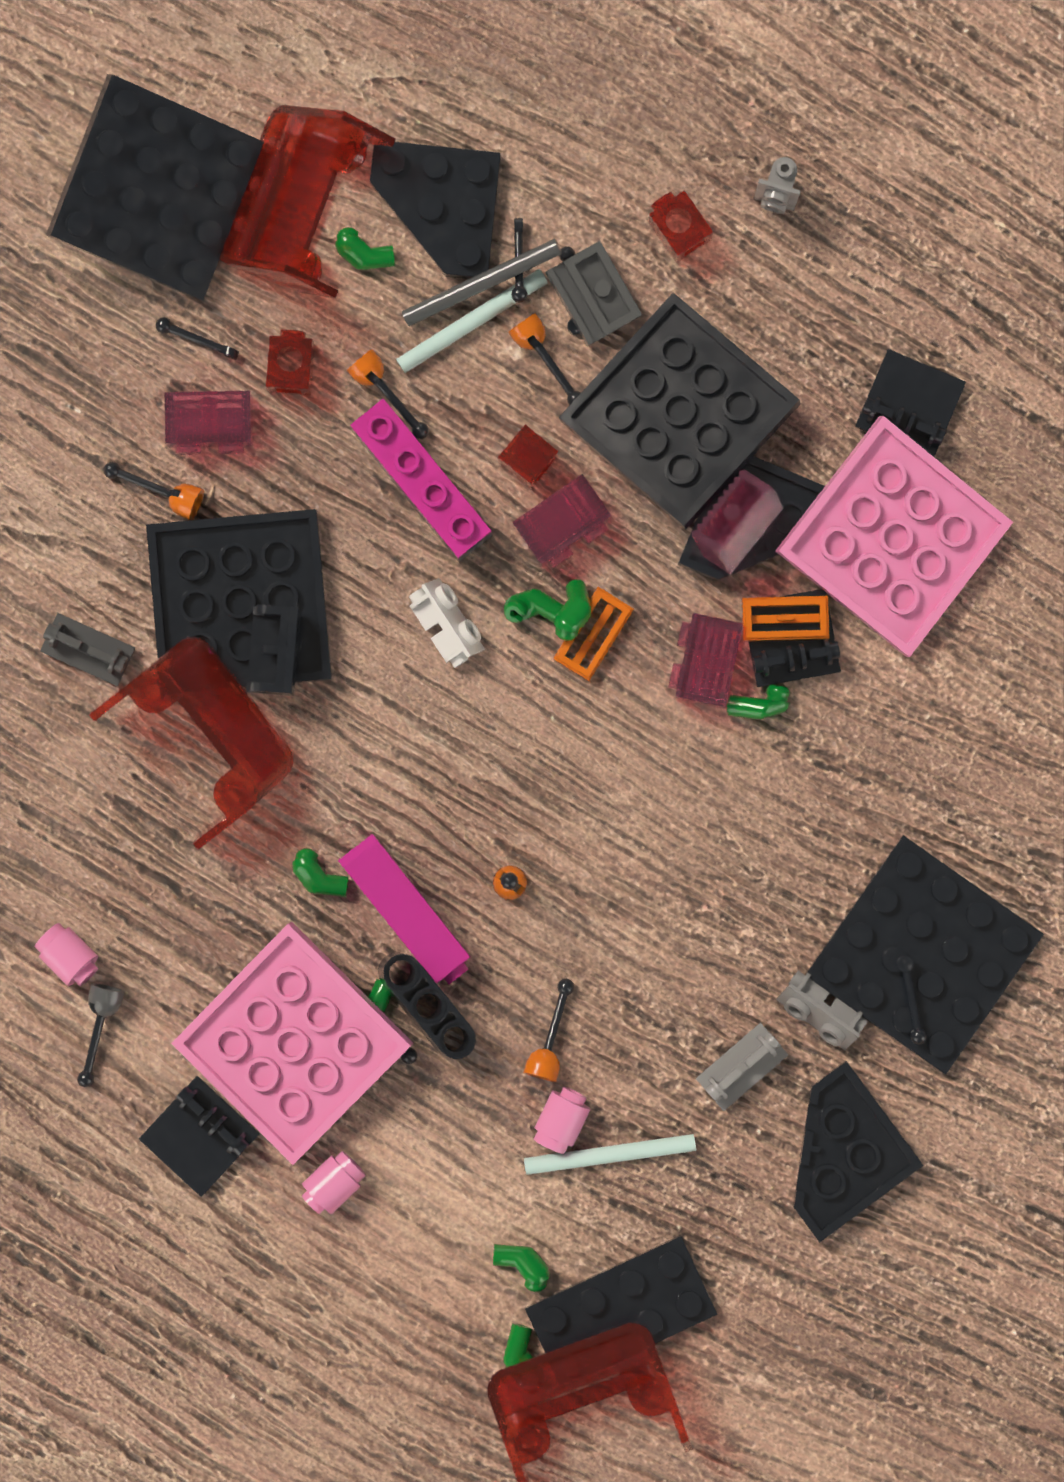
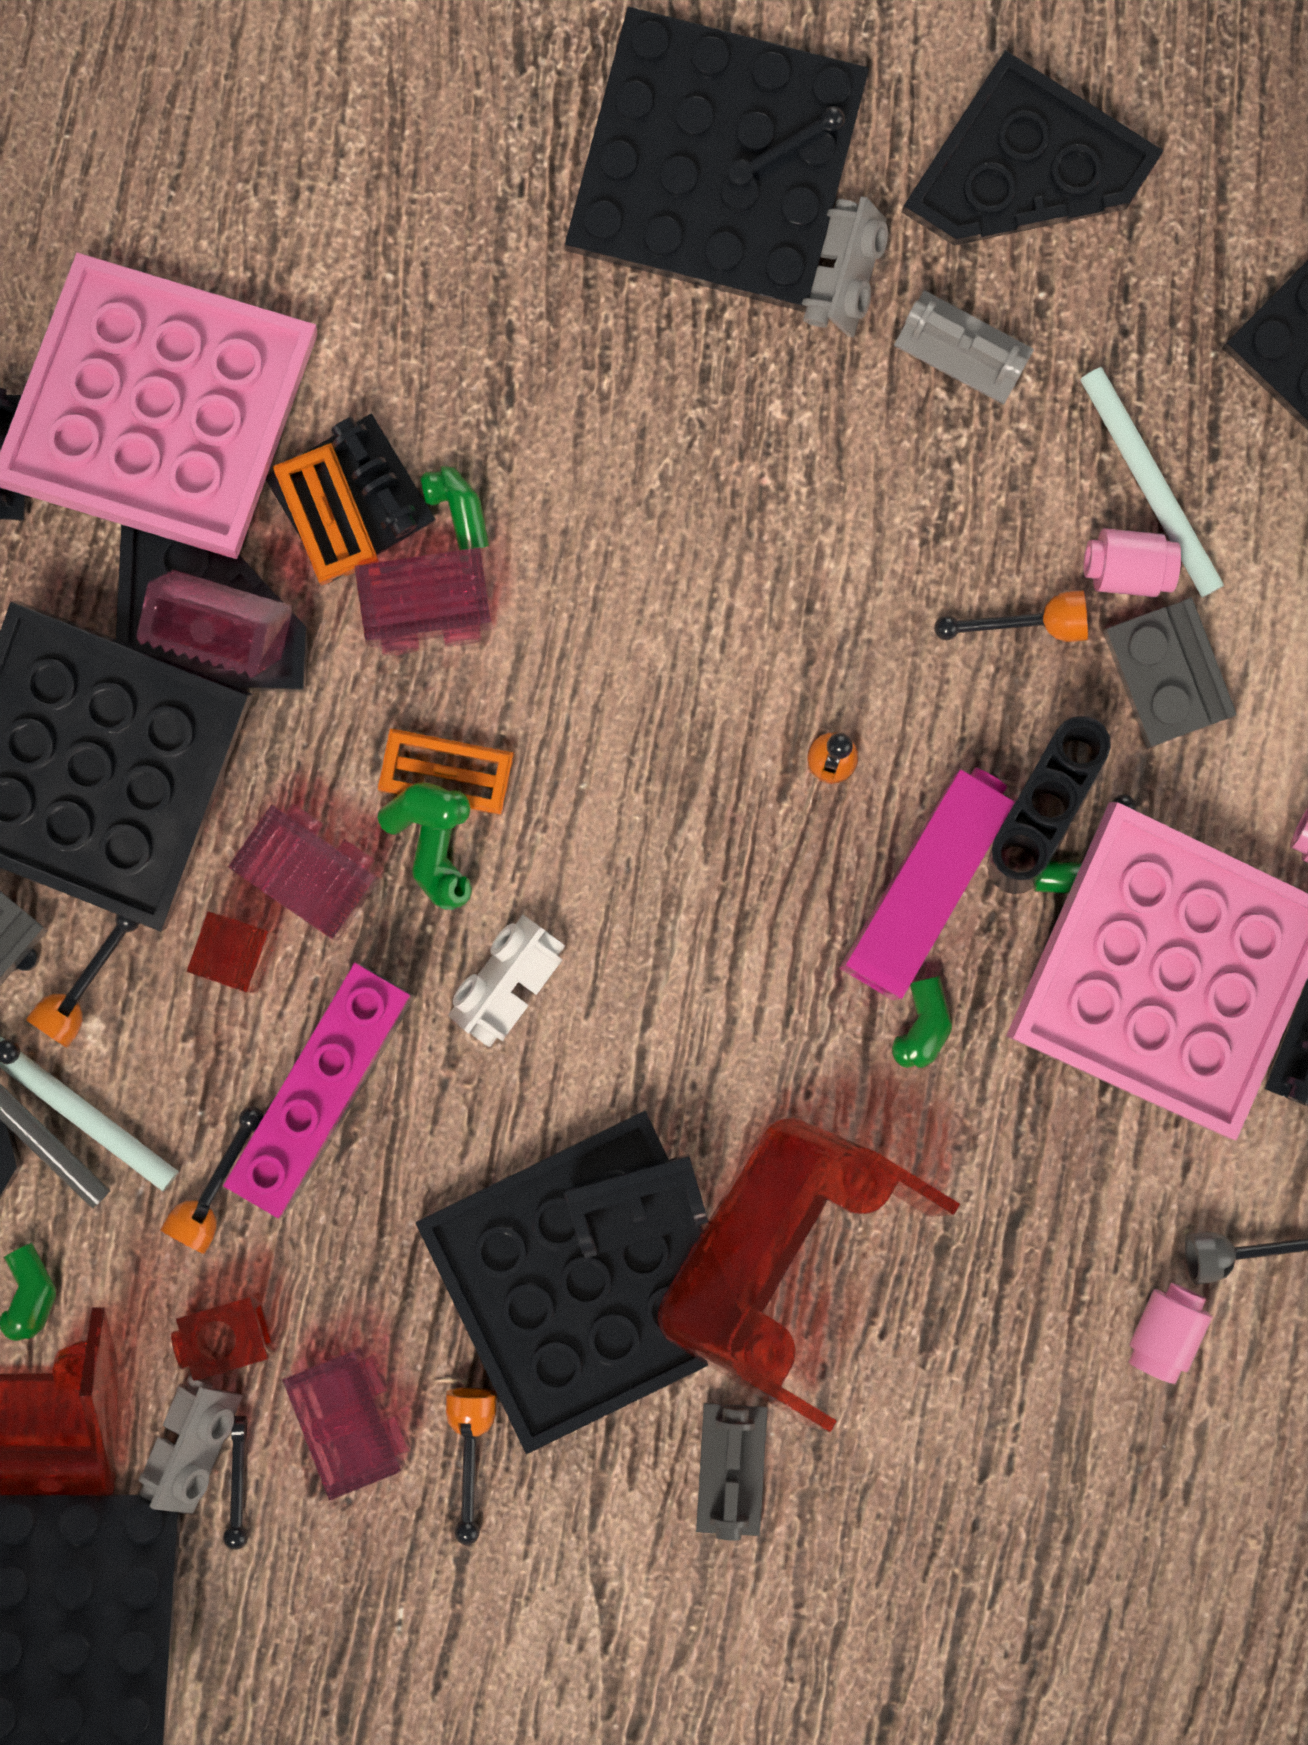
camera: 105 degrees left, 0 degrees up
(217, 305) = (180, 1472): none -> light grey hinge
(482, 1118) = (1169, 673): none -> dark grey plate

